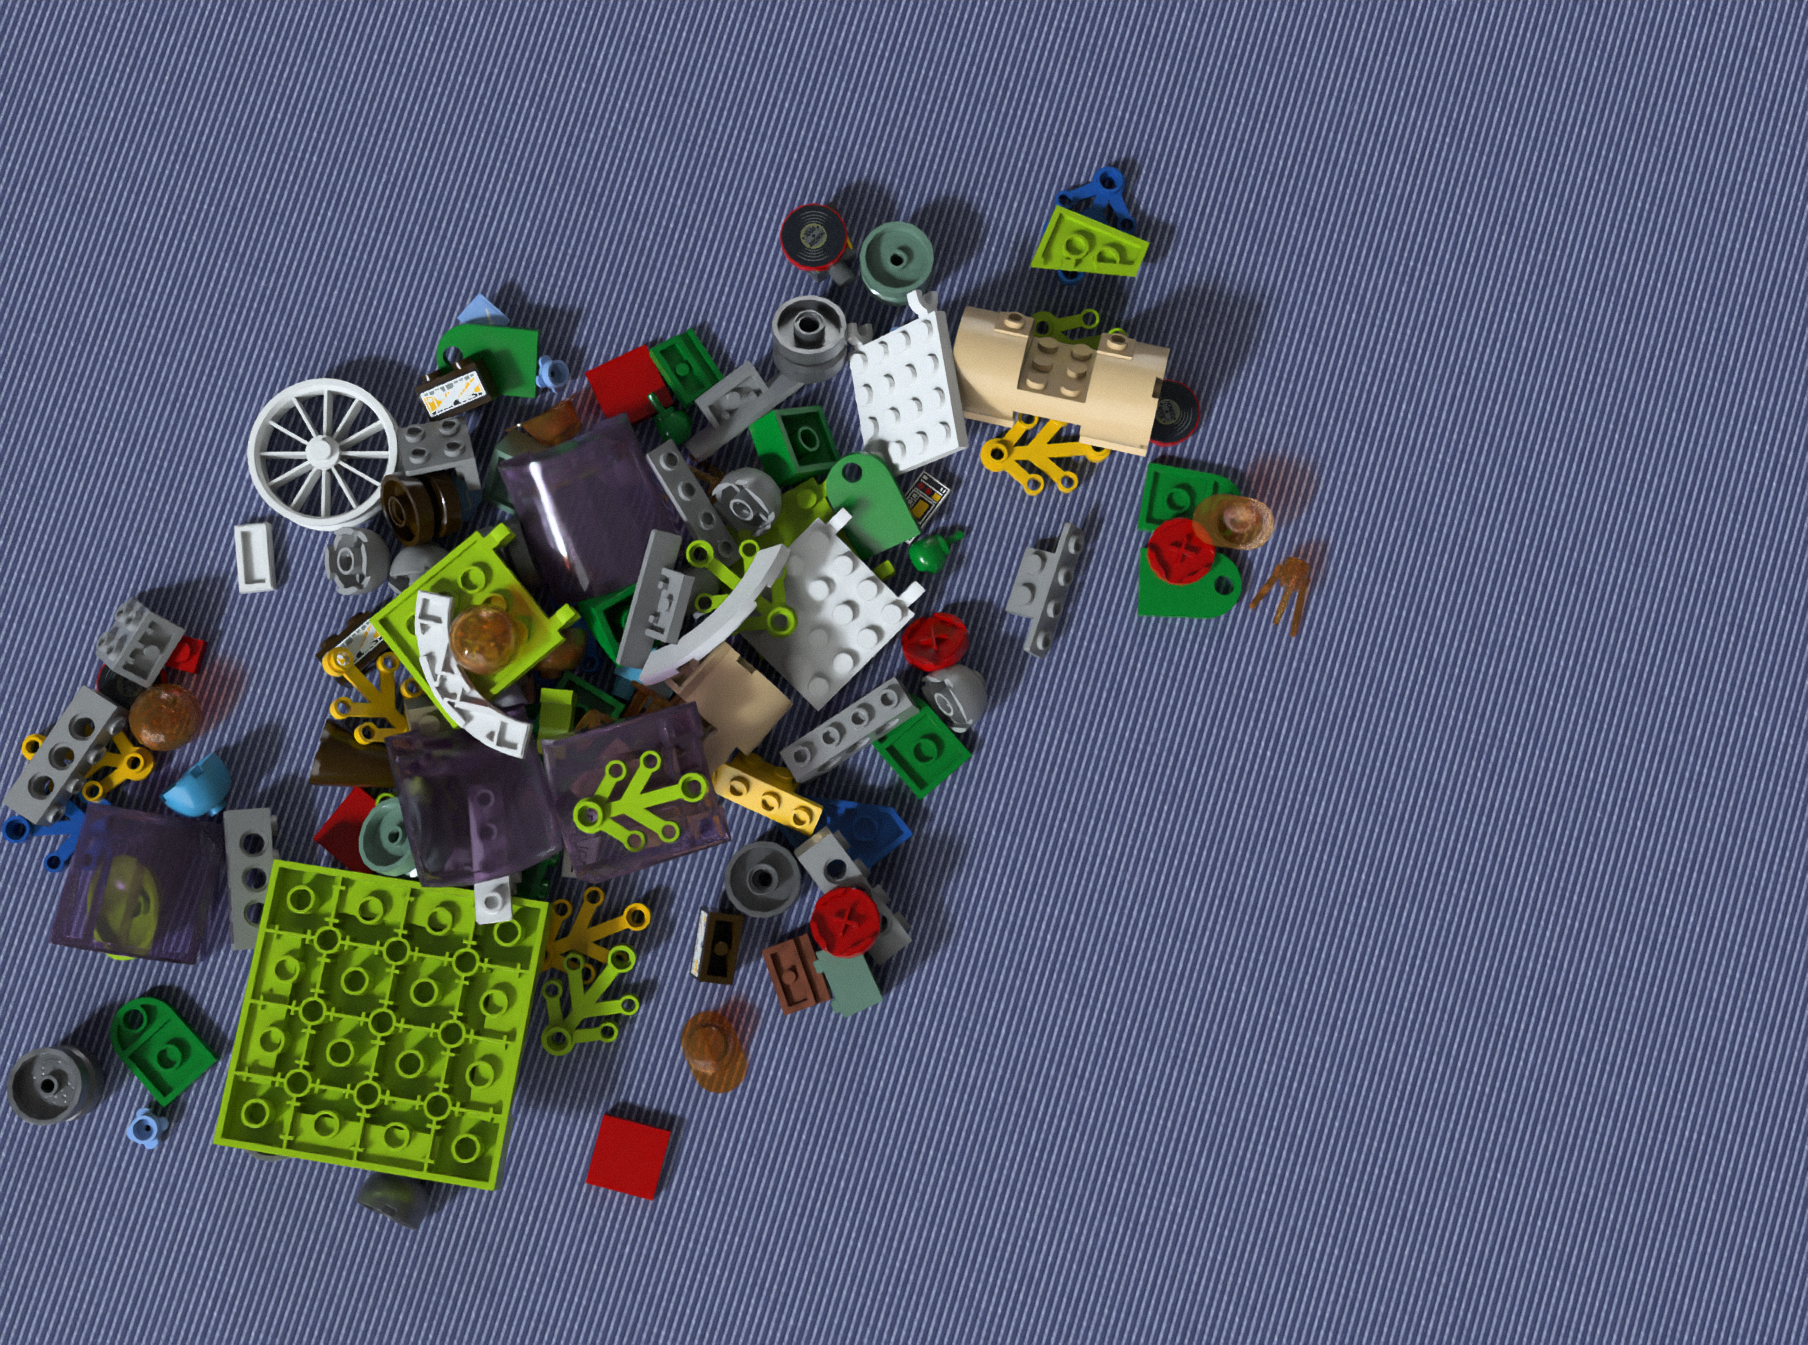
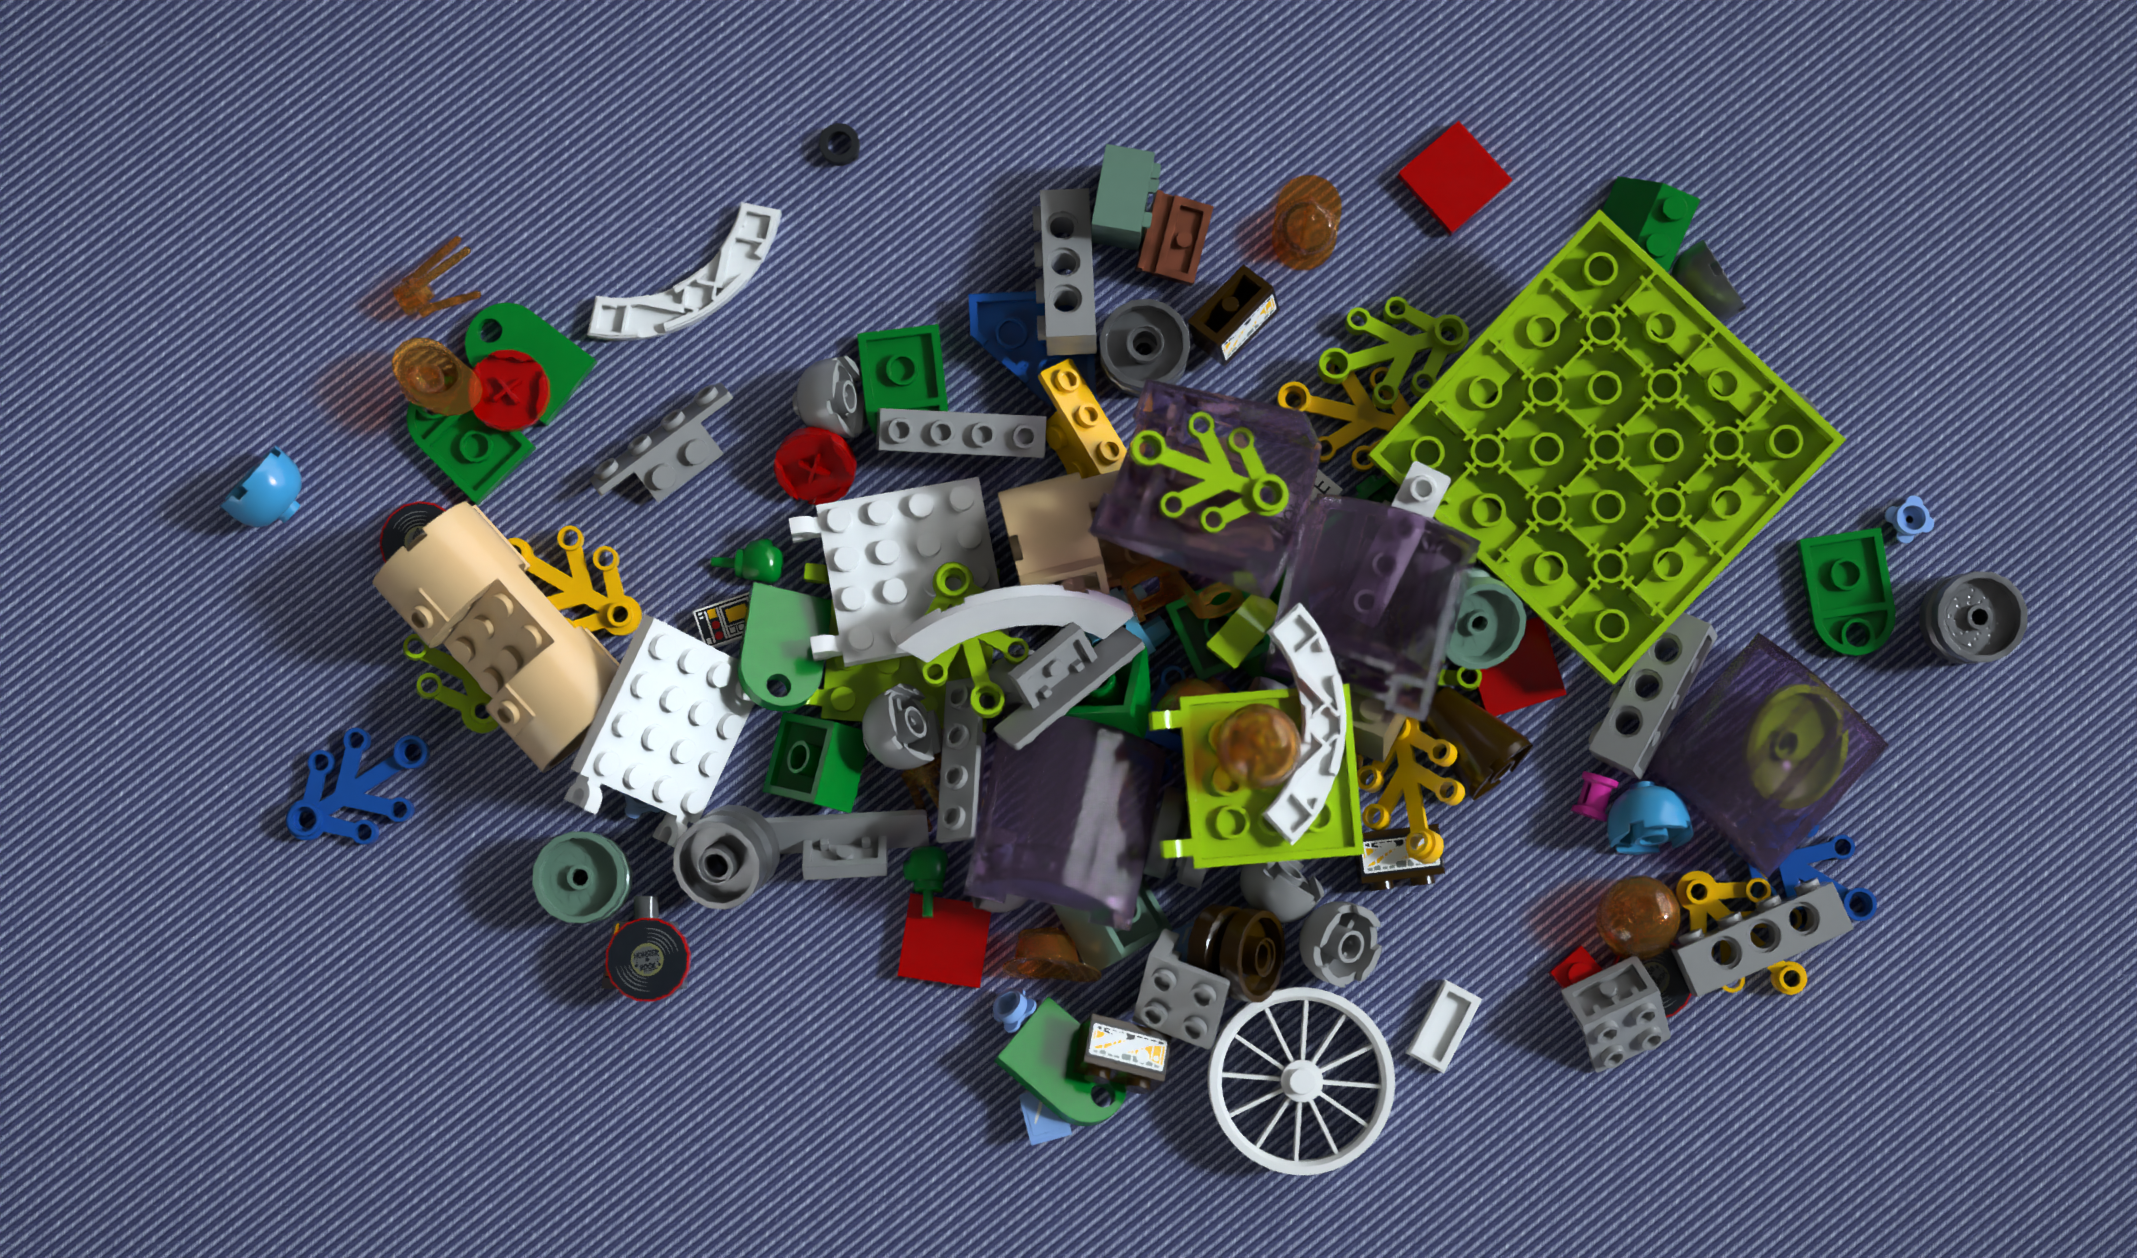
camera: 145 degrees left, 0 degrees up
(248, 780) = (1594, 796): none -> dark pink bush
(468, 1217) = (1651, 215): none -> green slope
(686, 366) = (871, 919): green plate -> none
(845, 922) = (1091, 240): red tile -> none
(1088, 246) = (376, 762): lime wing -> none
(1092, 882) = (839, 129): none -> black piece
(1100, 709) = (700, 293): none -> white tile
(1293, 372) = (266, 491): none -> dark azure cylinder

